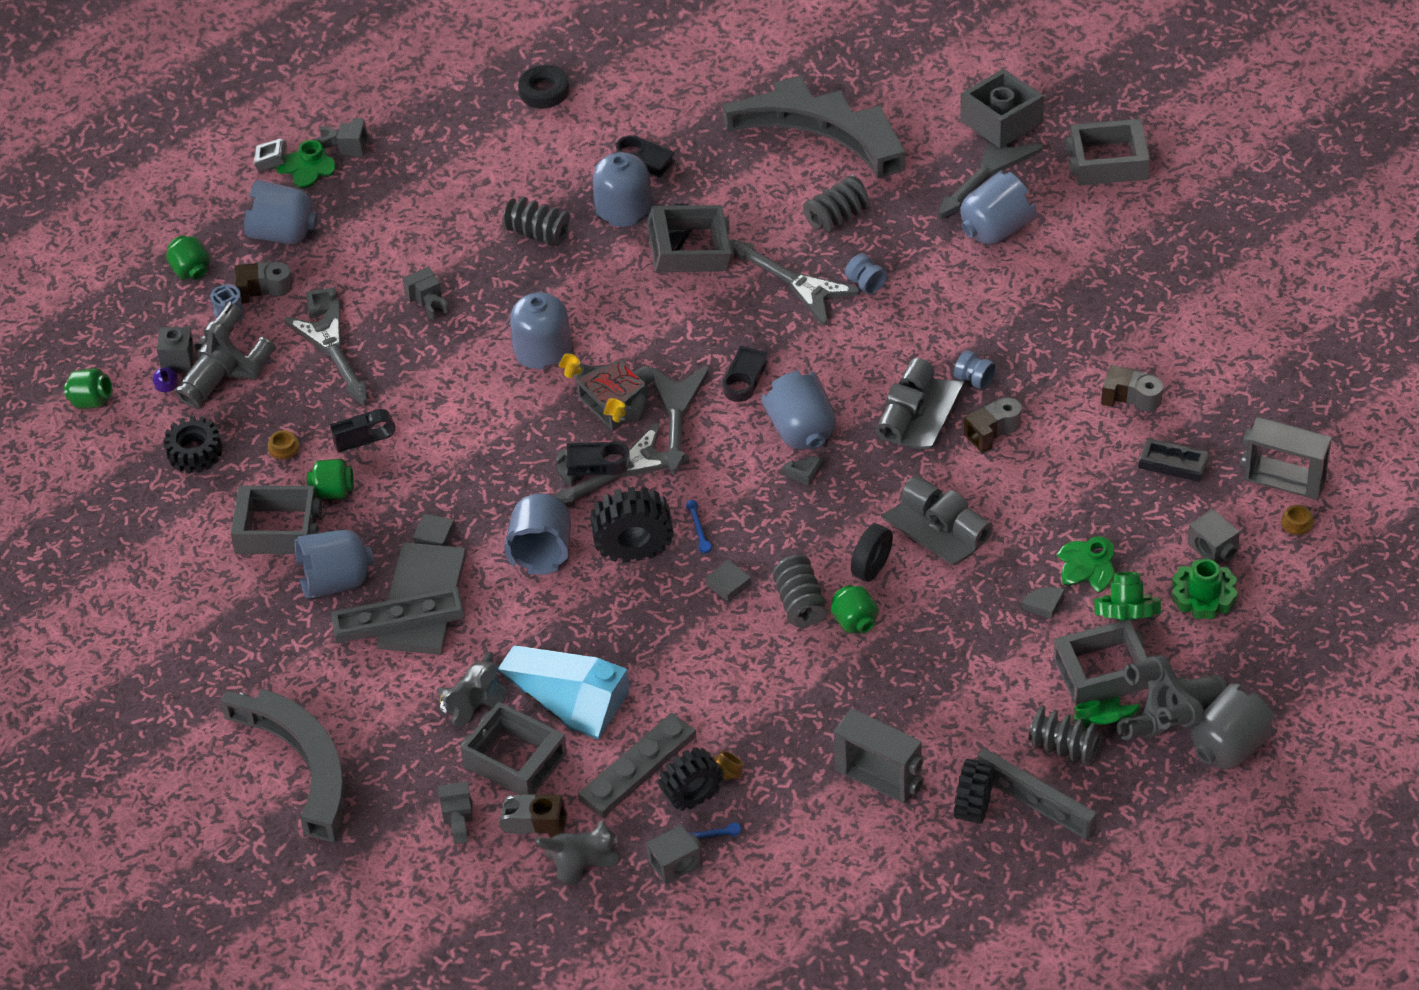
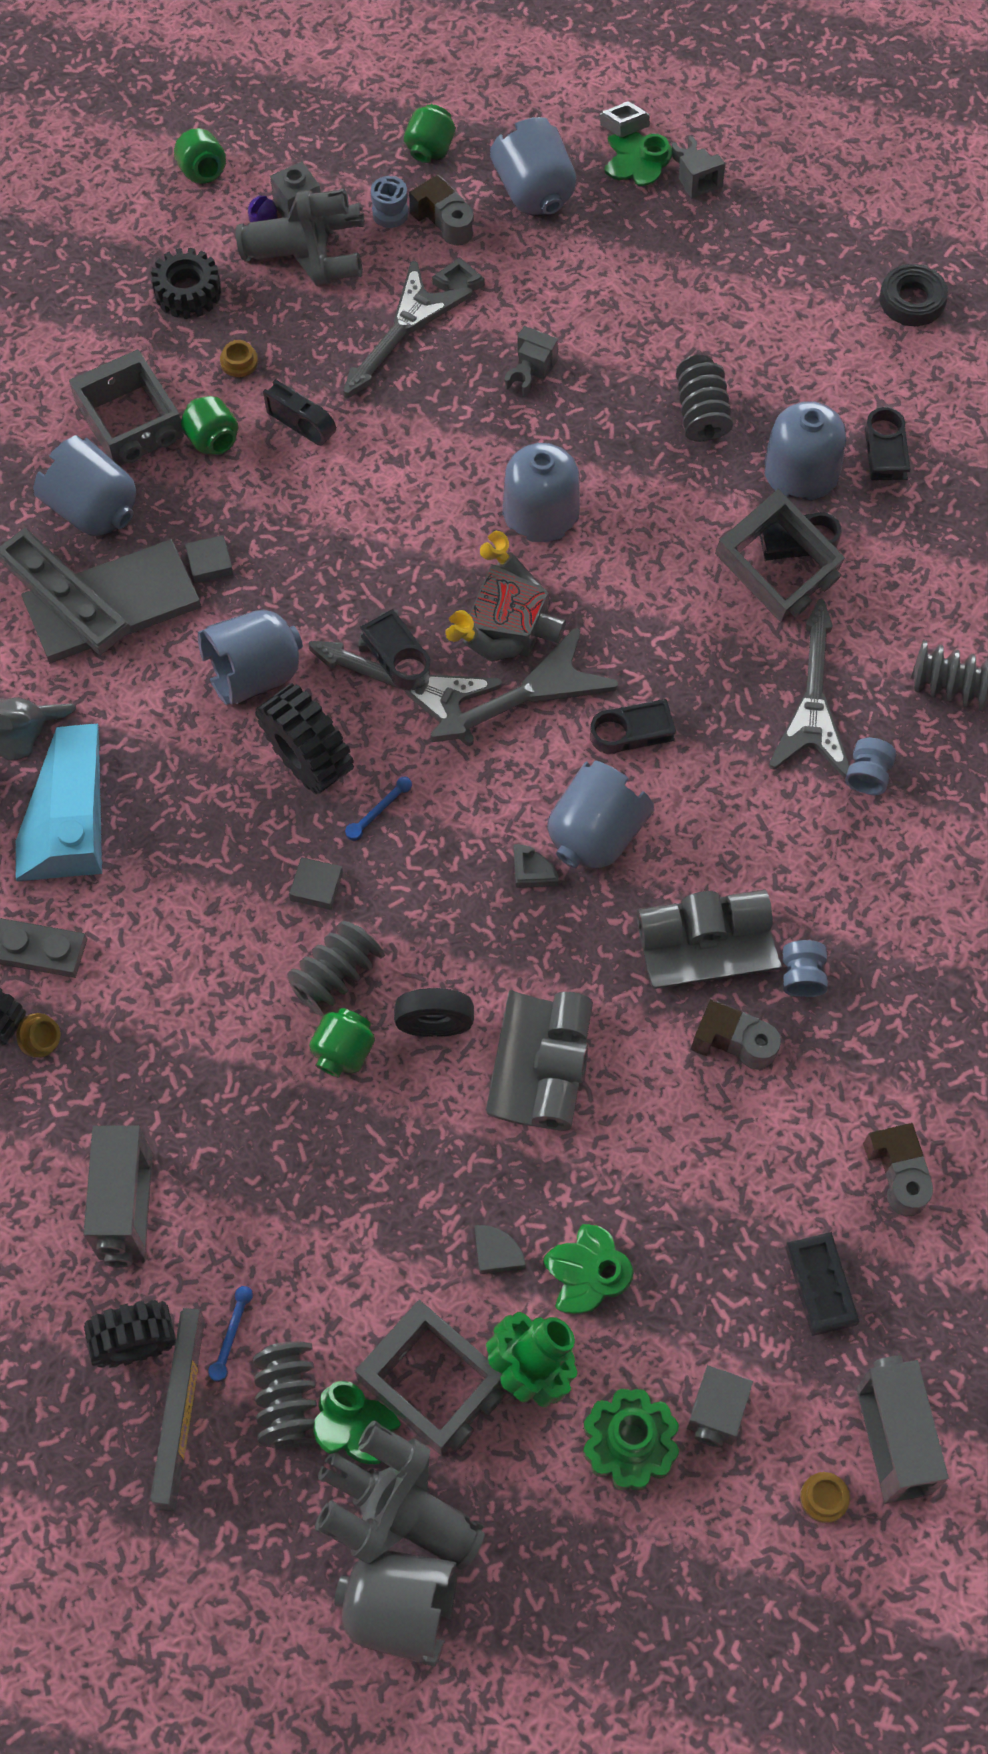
camera: 55 degrees right, 15 degrees up
(983, 738) = (218, 1370): none -> blue hinge

